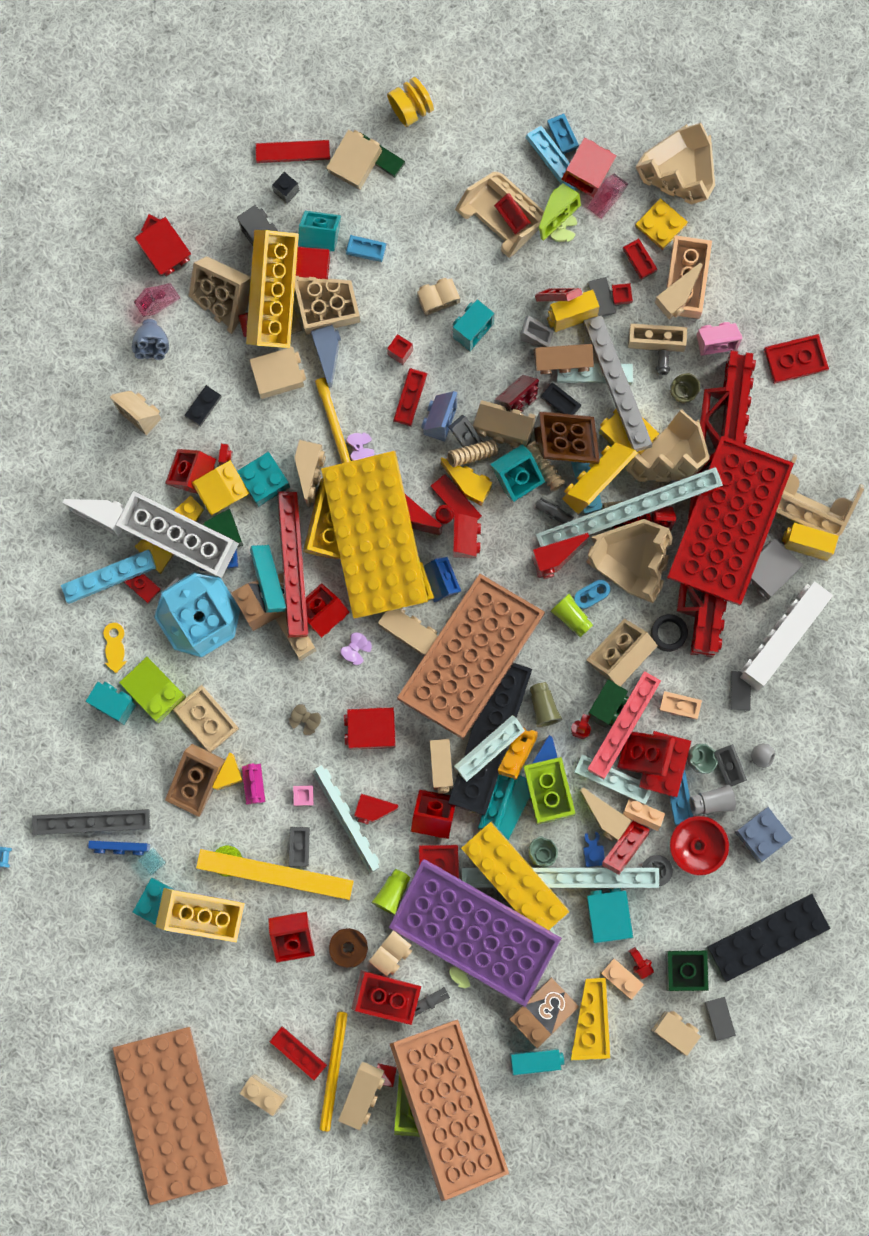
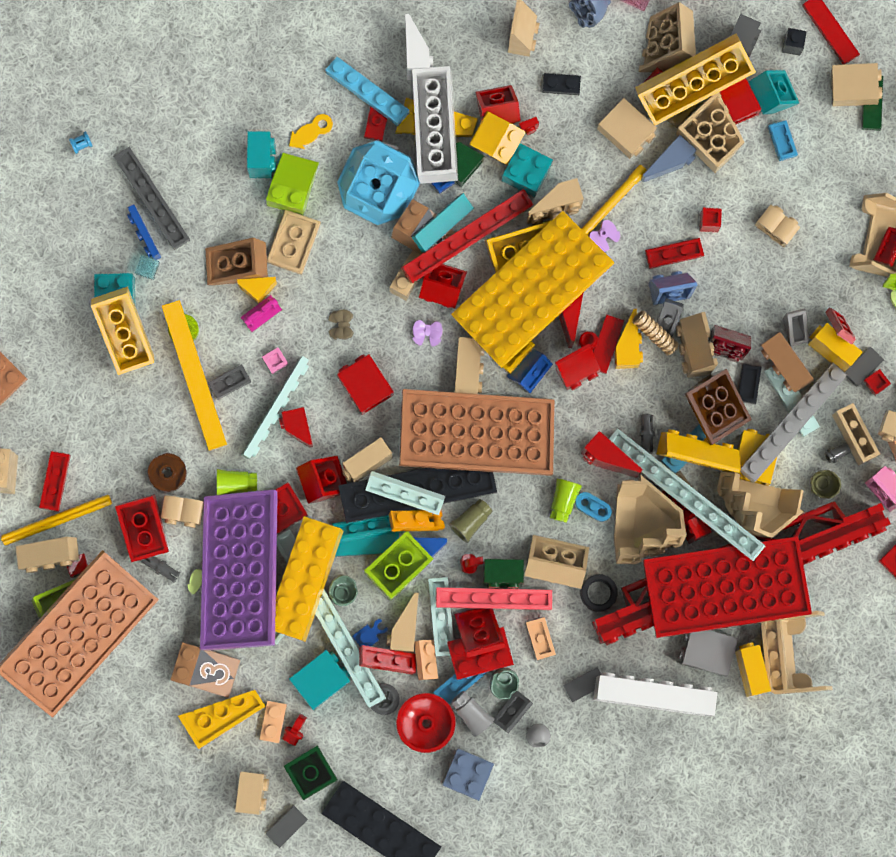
camera: 50 degrees right, 0 degrees up
(291, 937) = (149, 419): red slope -> none
(473, 324) = (769, 268): teal brick -> none
(517, 472) = (661, 381): teal brick -> none
(536, 1061) = (159, 686): teal brick -> none
(545, 467) = (681, 402): tan piece -> none

